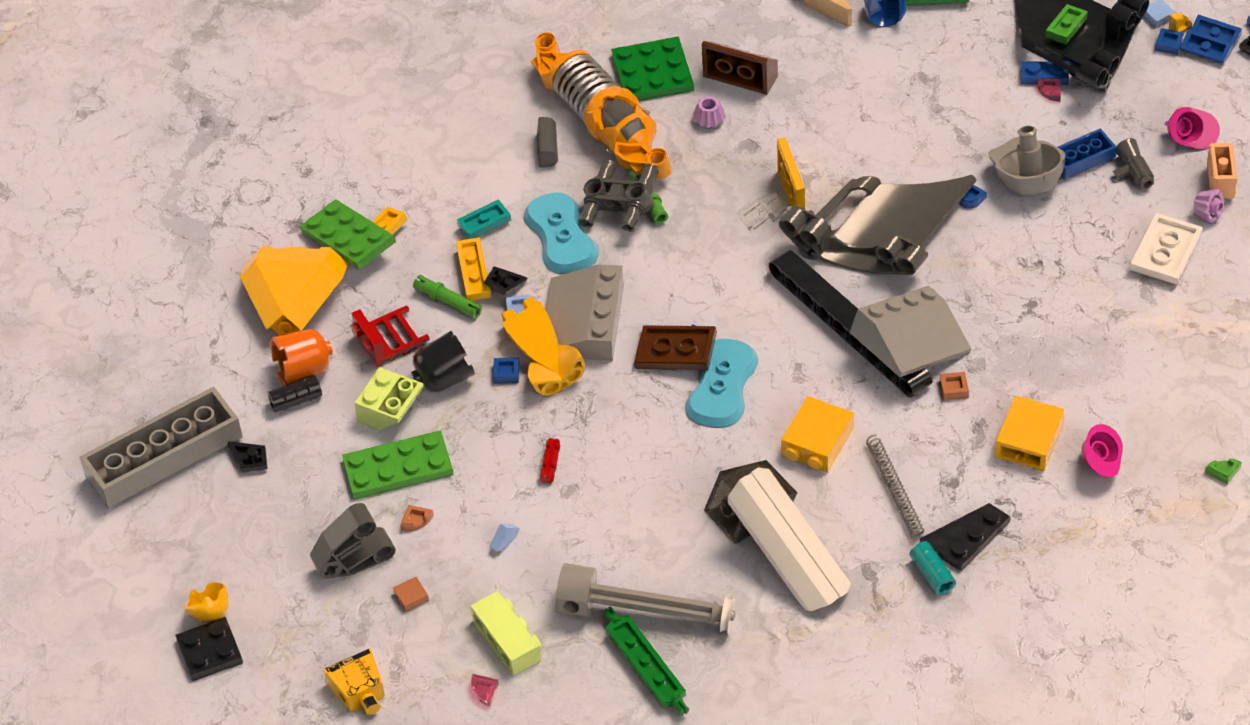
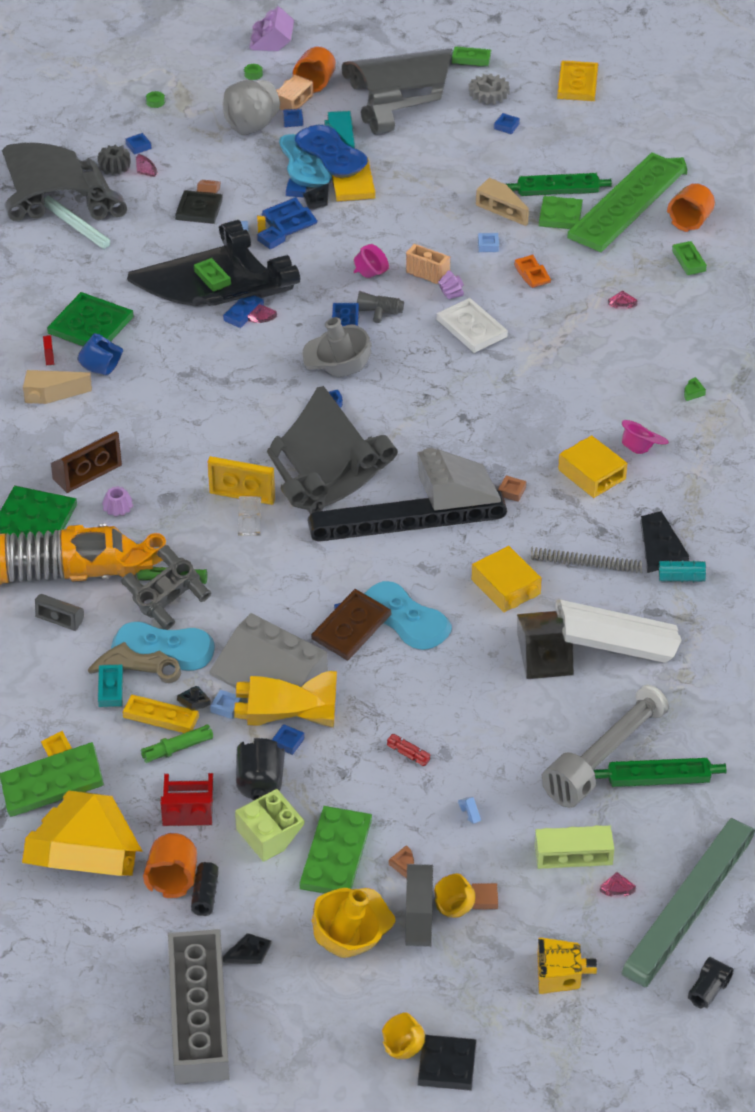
camera: 65 degrees left, 5 degrees down
(305, 502) = (350, 920): none -> yellow piece
(387, 570) = (454, 896): none -> yellow hair
(529, 234) = (140, 662): none -> dark tan piece

